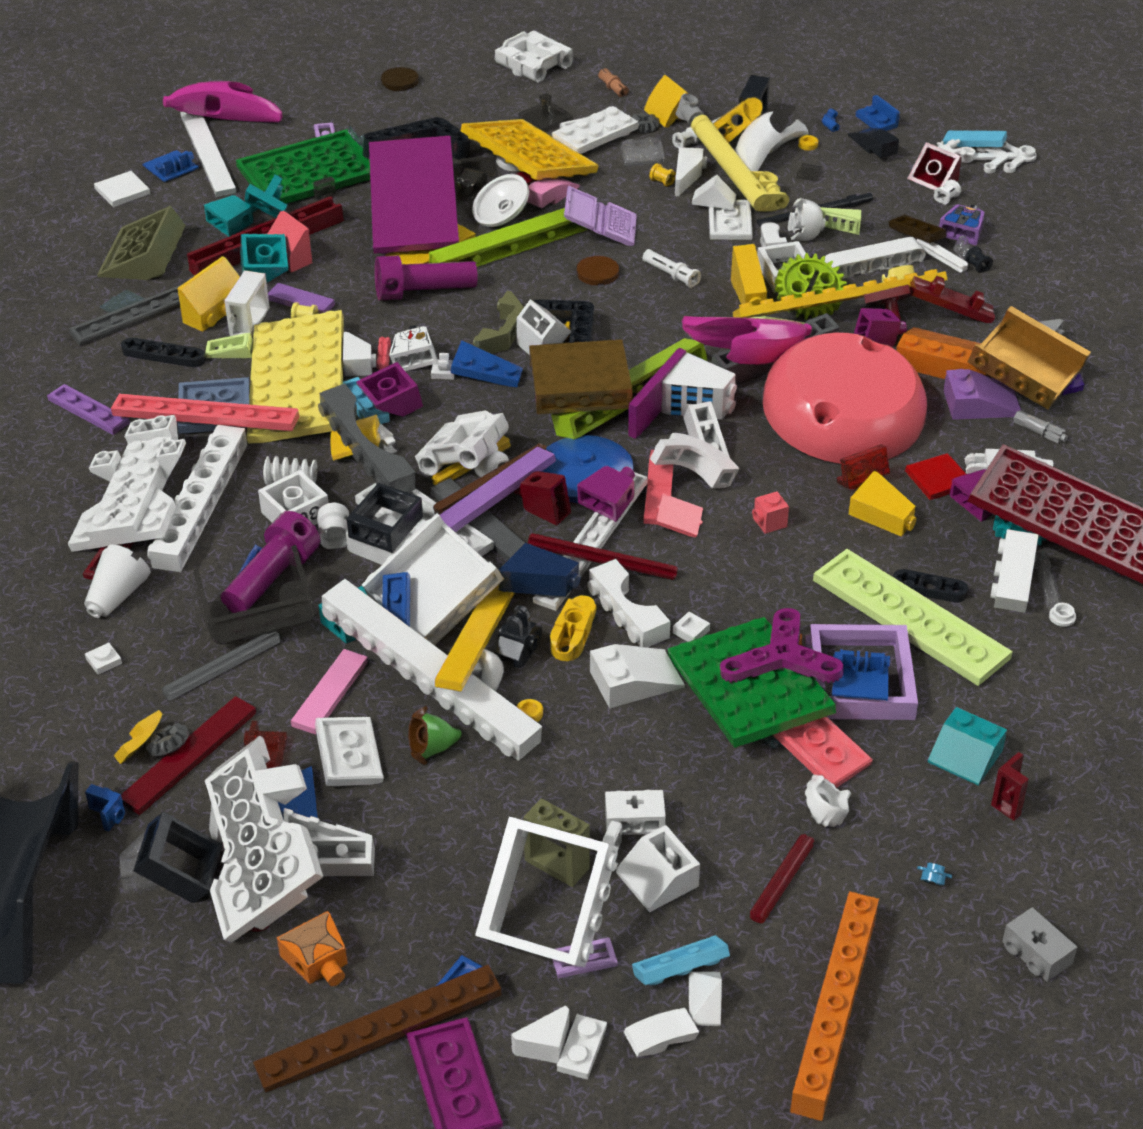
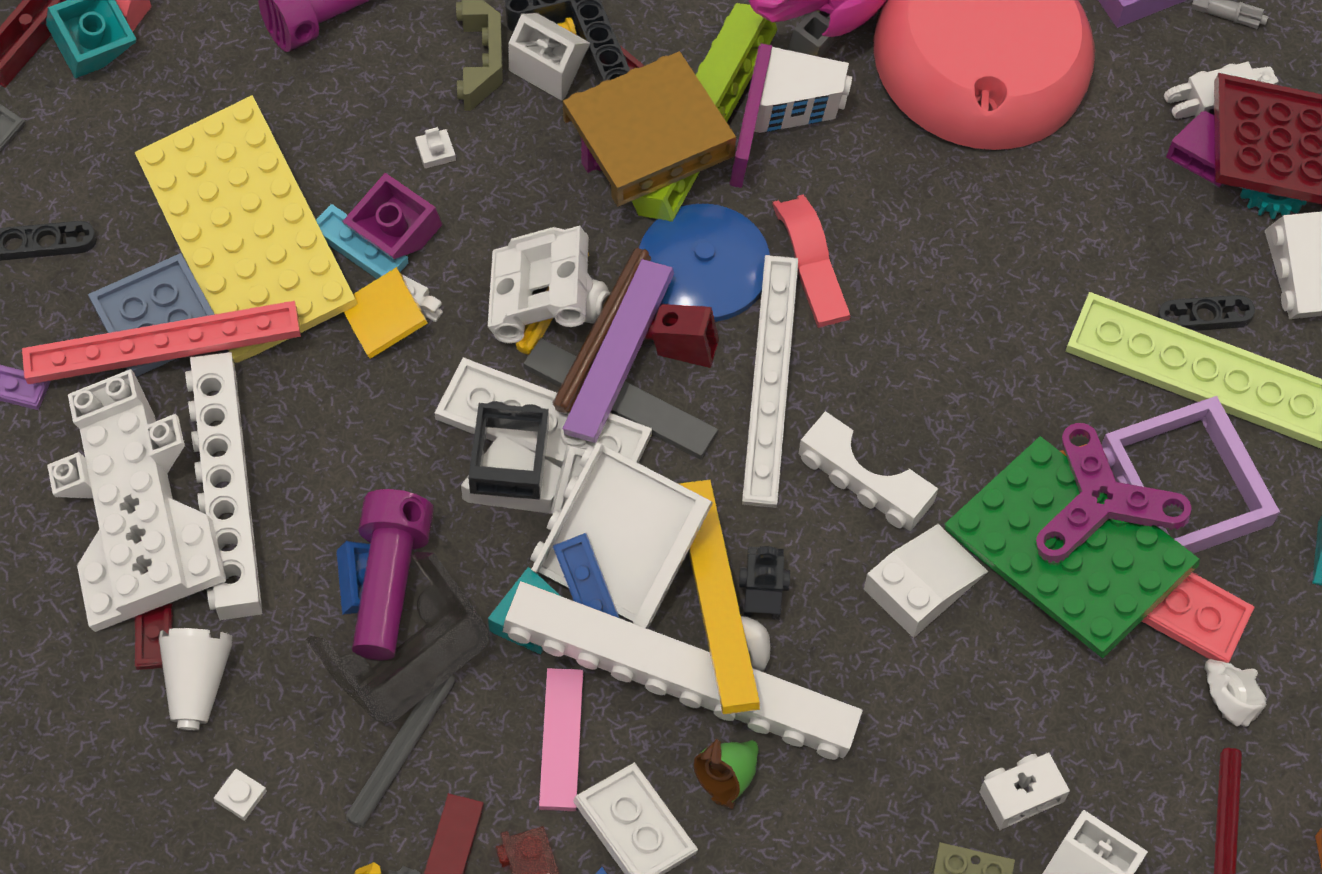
camera: 25 degrees left, 20 degrees up
(205, 295) = (54, 124): yellow slope -> none
(236, 347) = (134, 208): yellowish green slope -> none
(248, 302) = (114, 126): white window -> none
(276, 471) = (329, 403): white piece -> none
(288, 295) = (172, 82): medium lavender tile -> none
(294, 494) = (363, 455): white brick -> none
(301, 310) = (194, 108): light yellow bush -> none
(332, 525) = (434, 474): white wheel -> none
(357, 356) = (311, 166): white slope -> none
(383, 352) = (340, 146): coral axle -> none
(386, 468) = (469, 365): dark grey arch -> none
(413, 348) = (383, 130): white torso -> none
(484, 366) = (489, 128): blue wing -> none
(531, 708) = (822, 678): yellow tile -> none
(539, 572) = (744, 466): dark blue slope -> none
(572, 628) = (816, 506): yellow piece -> none
(603, 556) = (802, 409): dark red axle -> none
(607, 491) = (768, 305): magenta torso -> none
(613, 834) = (1017, 842): white tile -> none
(679, 515) = (860, 304): coral piece -> none
(691, 627) = (958, 481): white plate -> none
(698, 456) = (853, 206): white arch -> none
(703, 424) = (838, 162): white slope -> none
(771, 512) = (974, 264): coral brick -> none
(861, 465) = (1056, 155): clear red bracket -> none
(862, 675) = (1211, 497): blue hinge -> none
(882, 505) = (1102, 205): yellow slope -> none
(935, 475) = (1141, 131): red tile -> none

